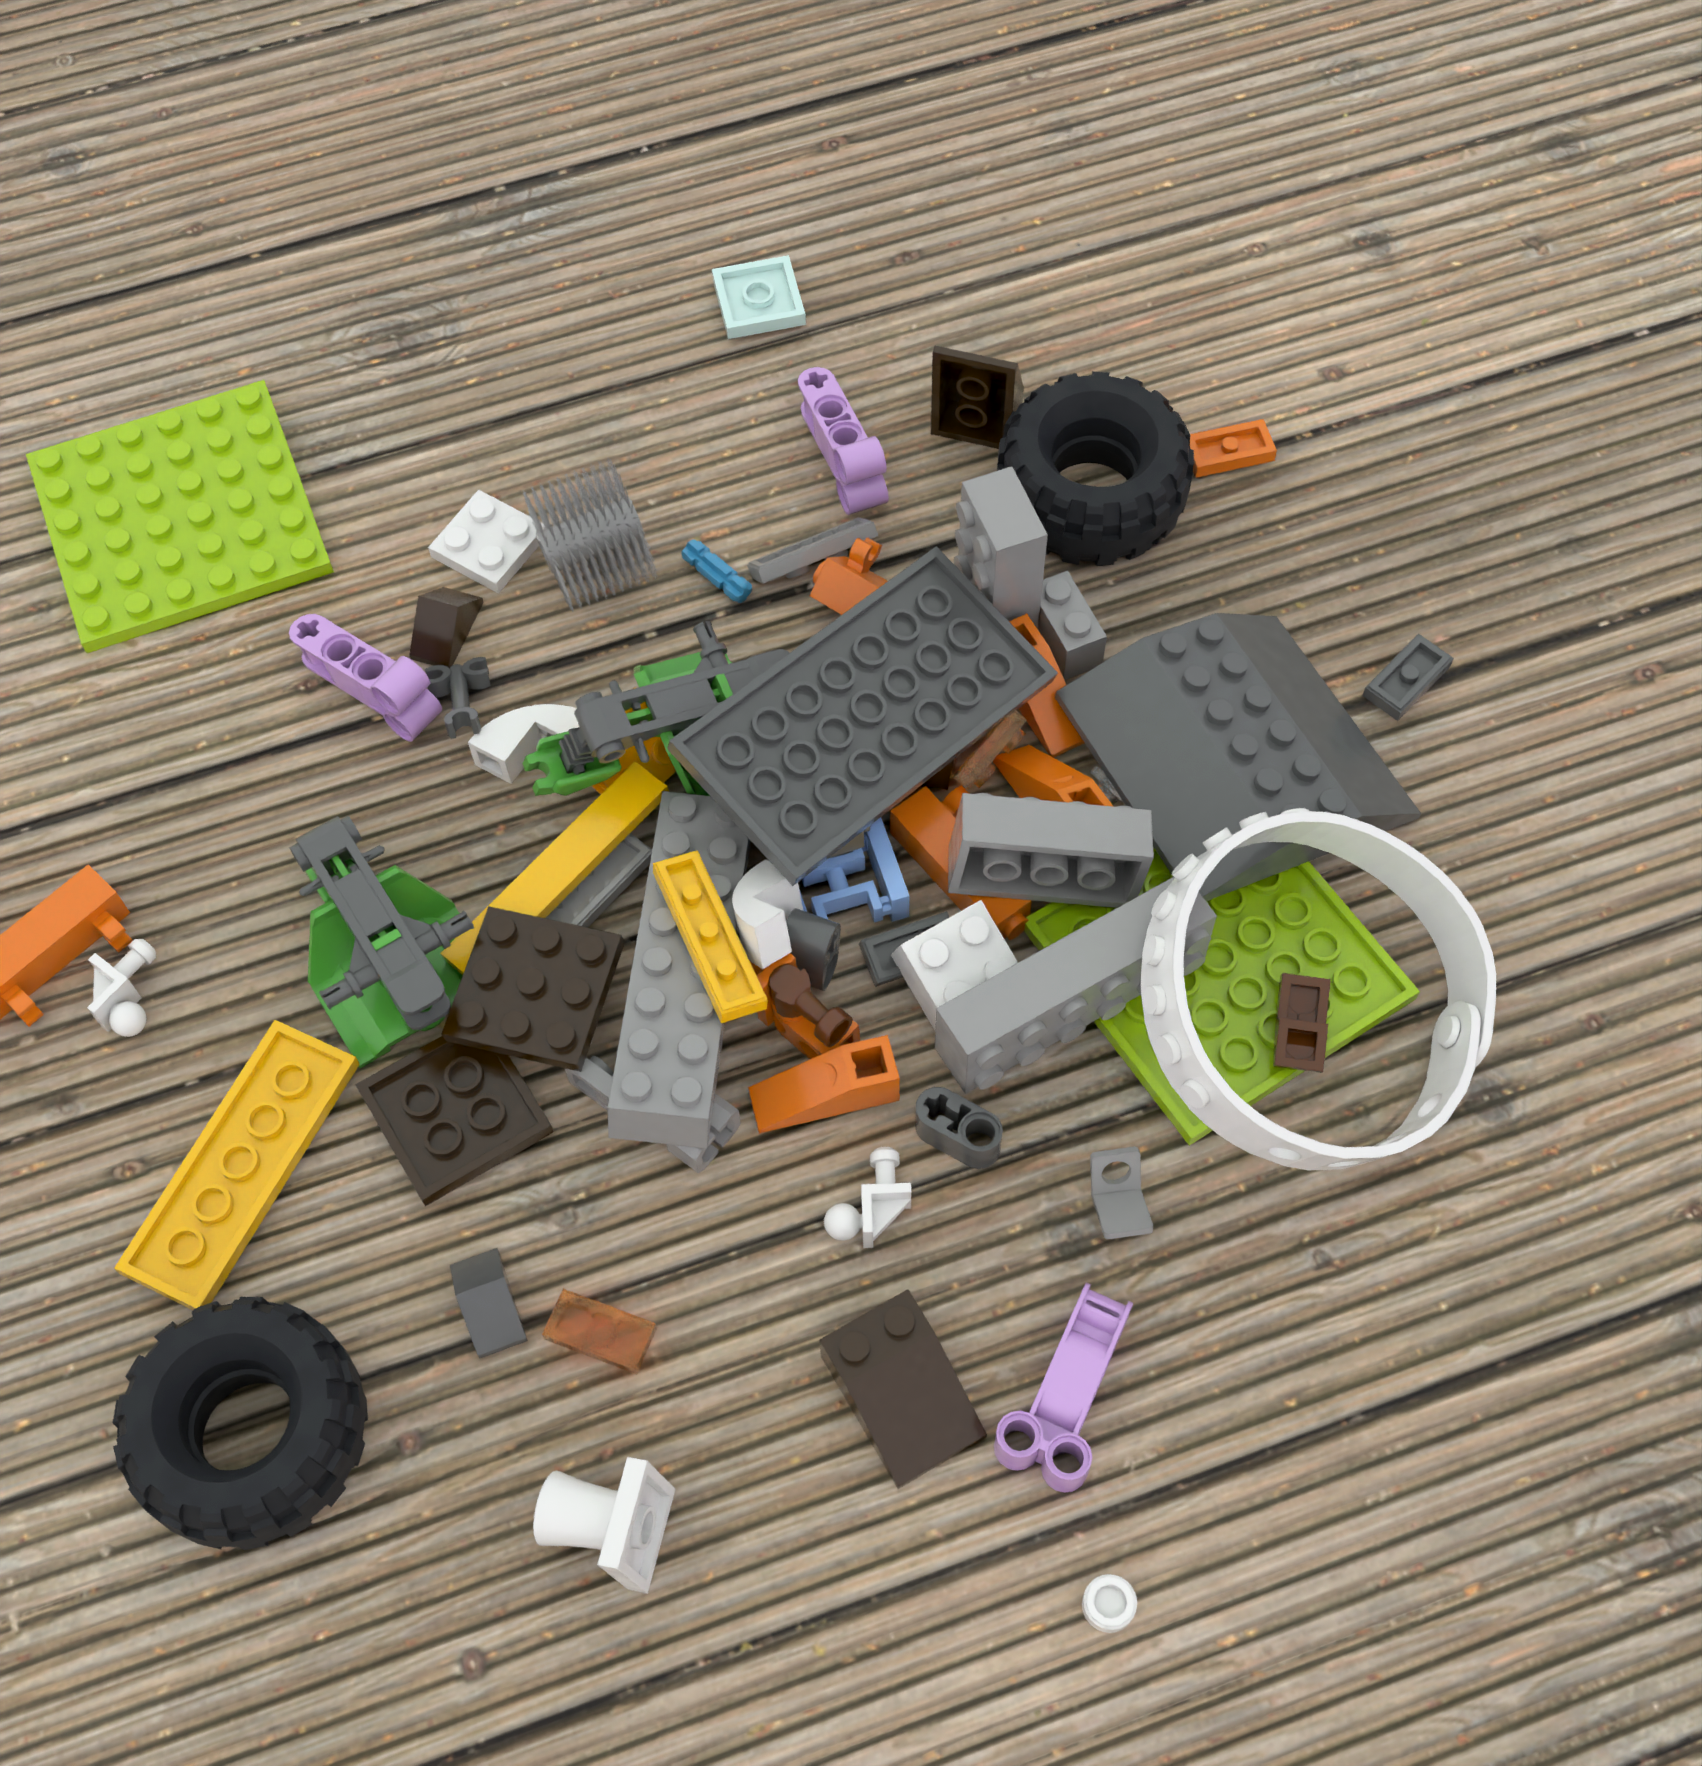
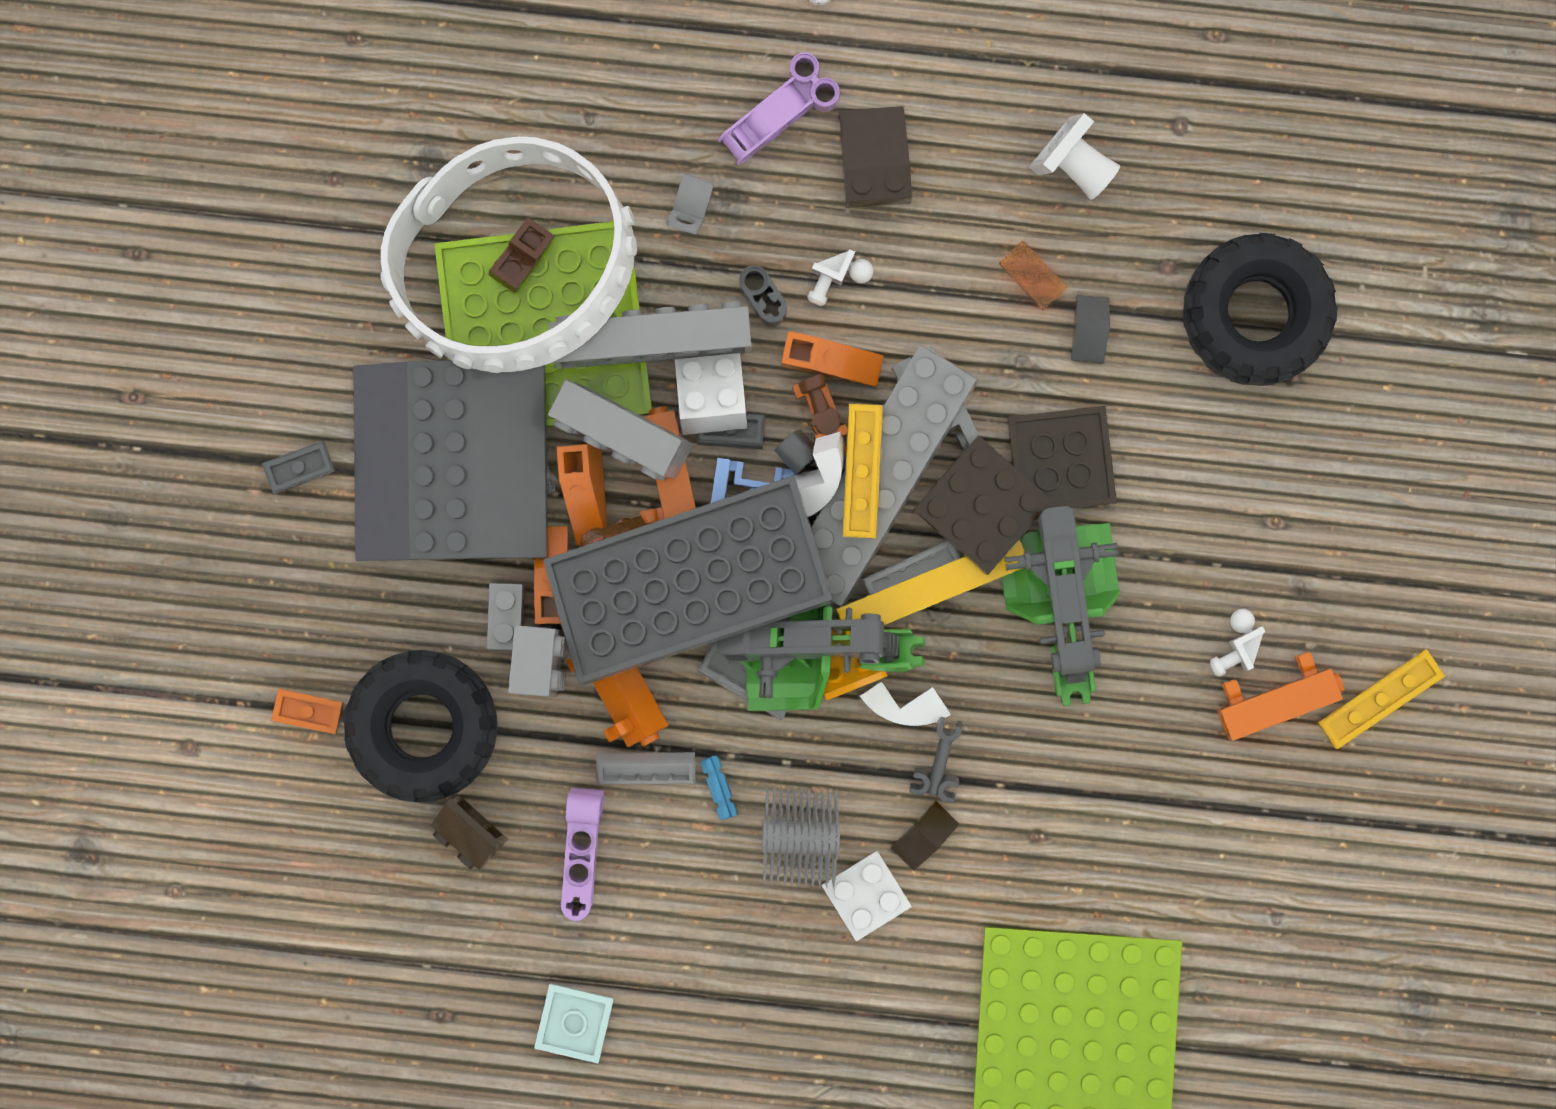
camera: 155 degrees left, 25 degrees up
(237, 1167) = (1205, 487): yellow plate -> none
(385, 685) = (982, 779): lavender piece -> none

